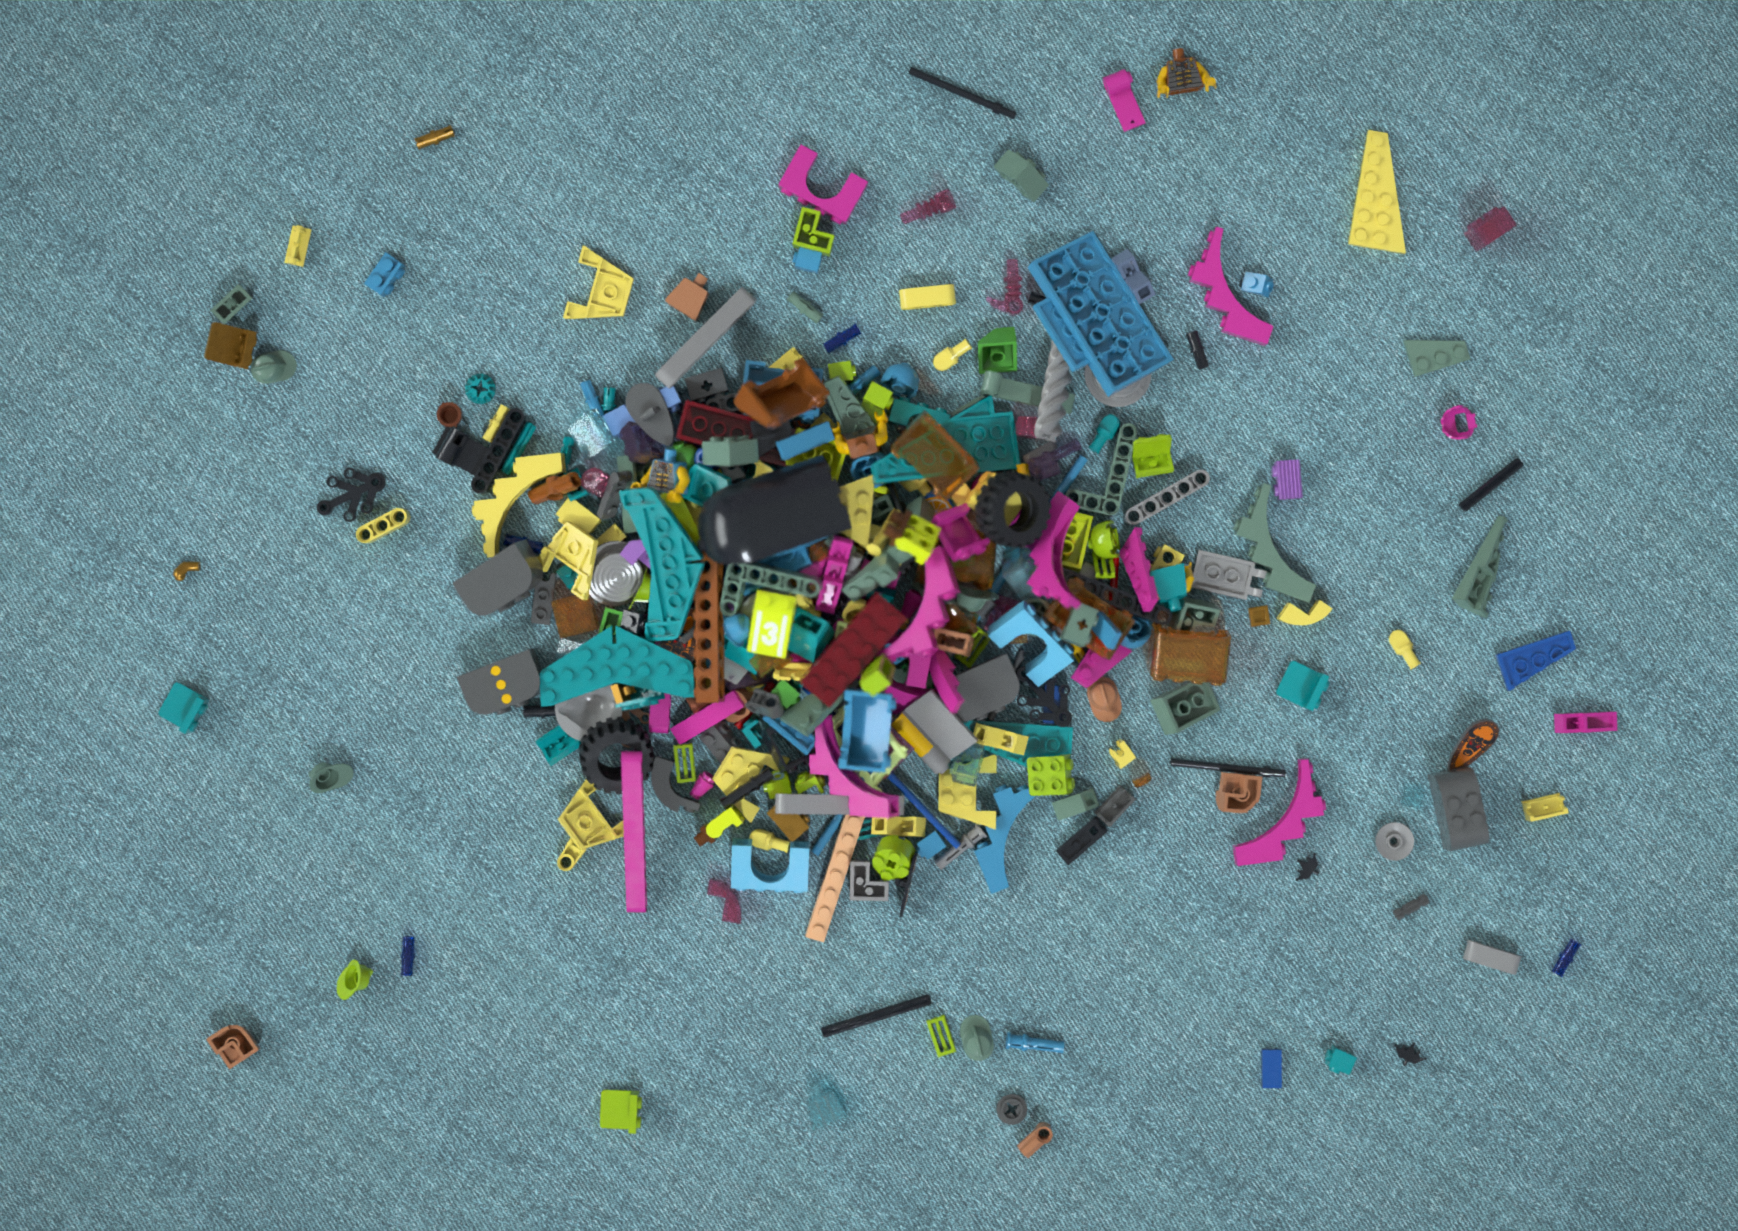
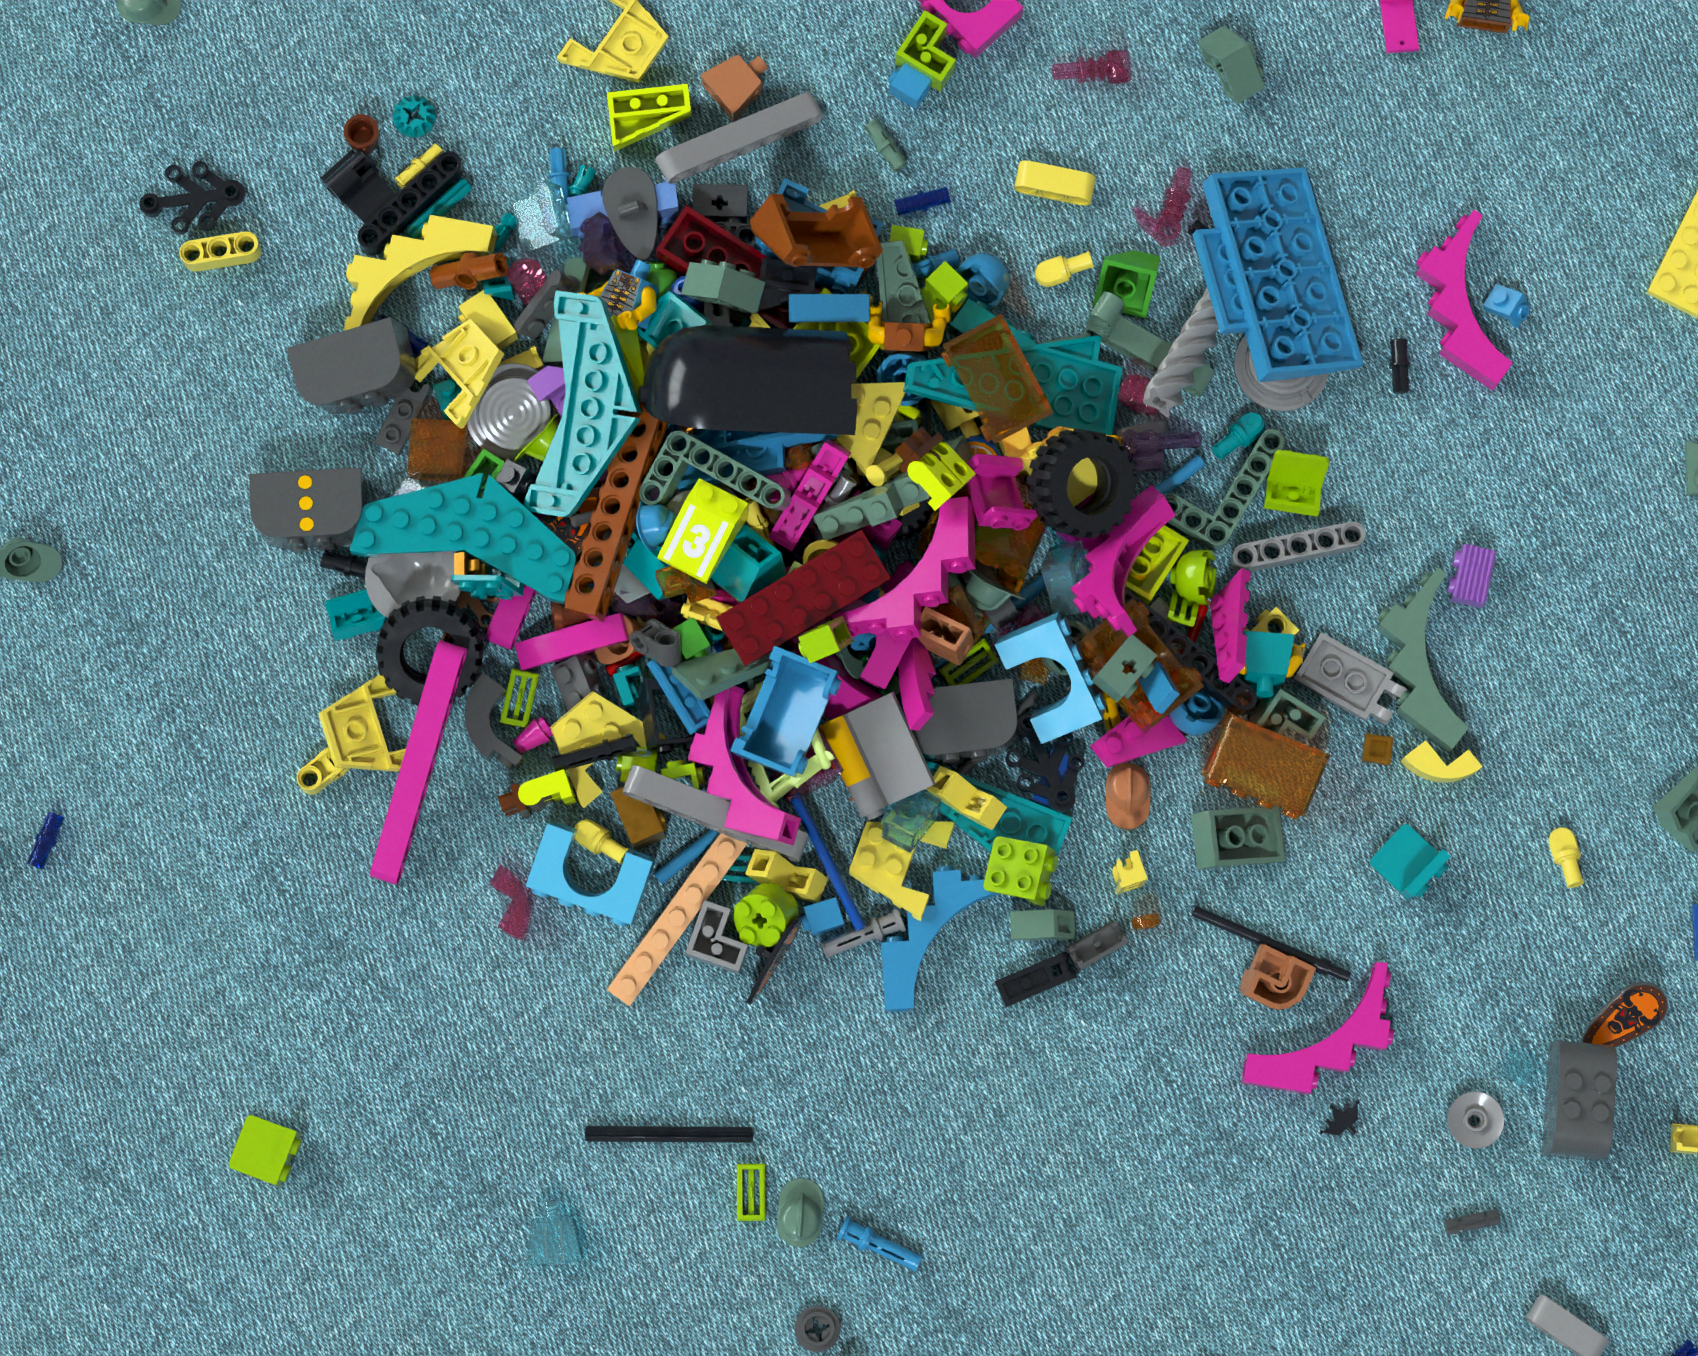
camera: 15 degrees right, 10 degrees down
(635, 338) = (645, 112): none -> neon yellow wedge
(1134, 278) = (1343, 247): sand blue brick -> none

